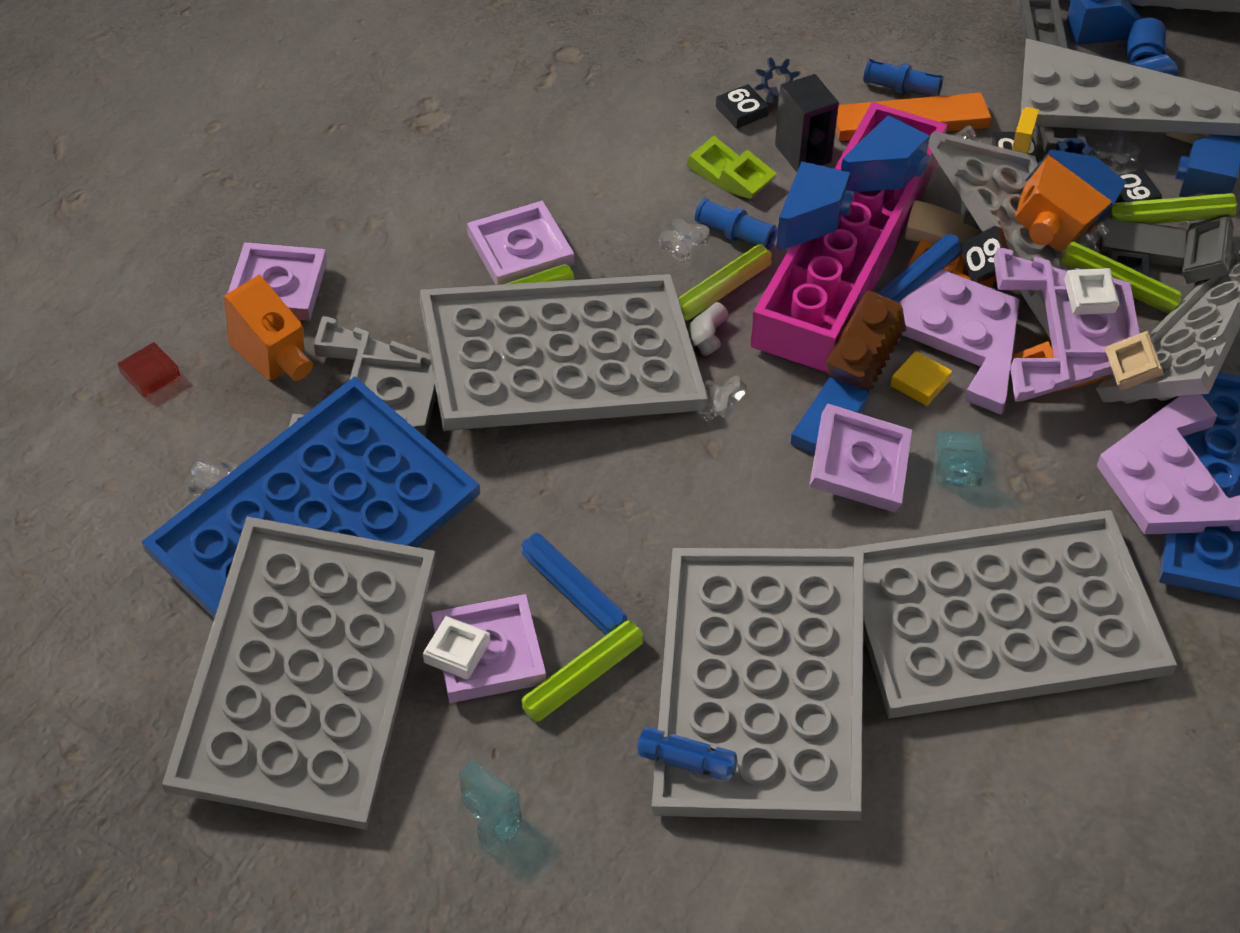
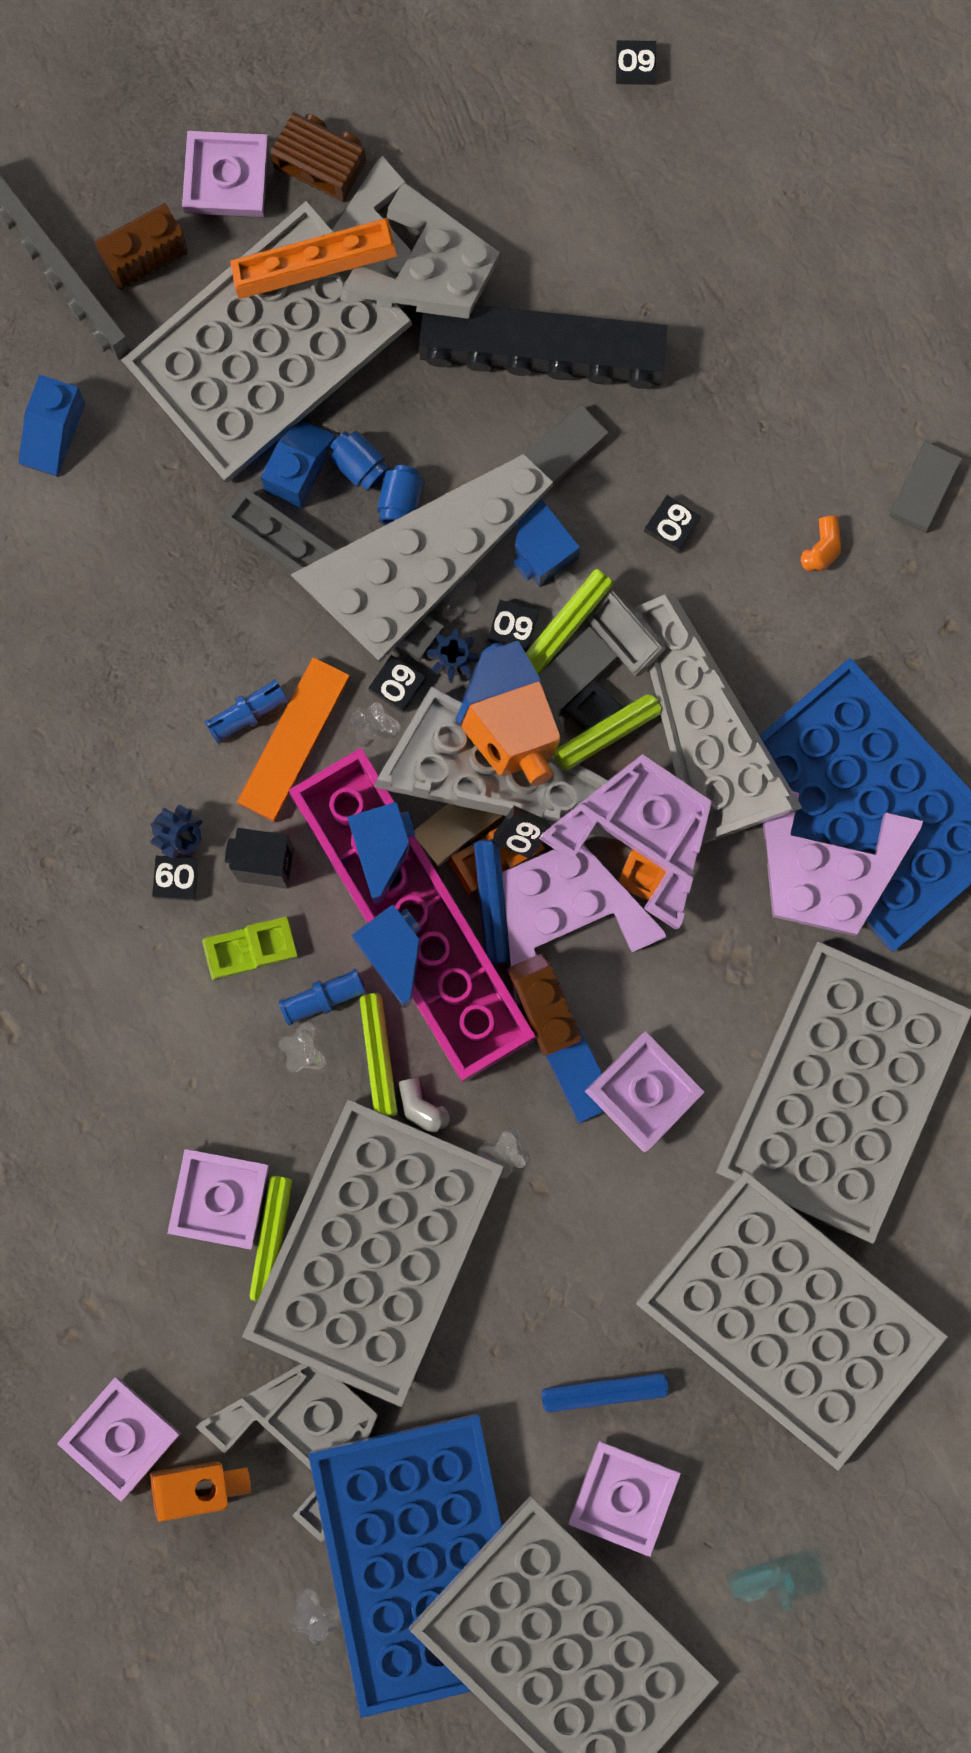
camera: 55 degrees left, 30 degrees up
(149, 369) = (146, 1603): clear red tile -> none
(456, 647) = (619, 1528): white tile -> none
(582, 671) = (687, 1438): lime axle -> none
(687, 754) = (823, 1423): blue axle -> none
(921, 378) = (589, 972): yellow tile -> none
(959, 458) = (687, 1008): clear light blue bracket -> none
(1025, 130) = (405, 679): yellow tile -> none
(1091, 291) = (634, 797): white tile -> none
(1134, 360) = (720, 822): tan tile -> none

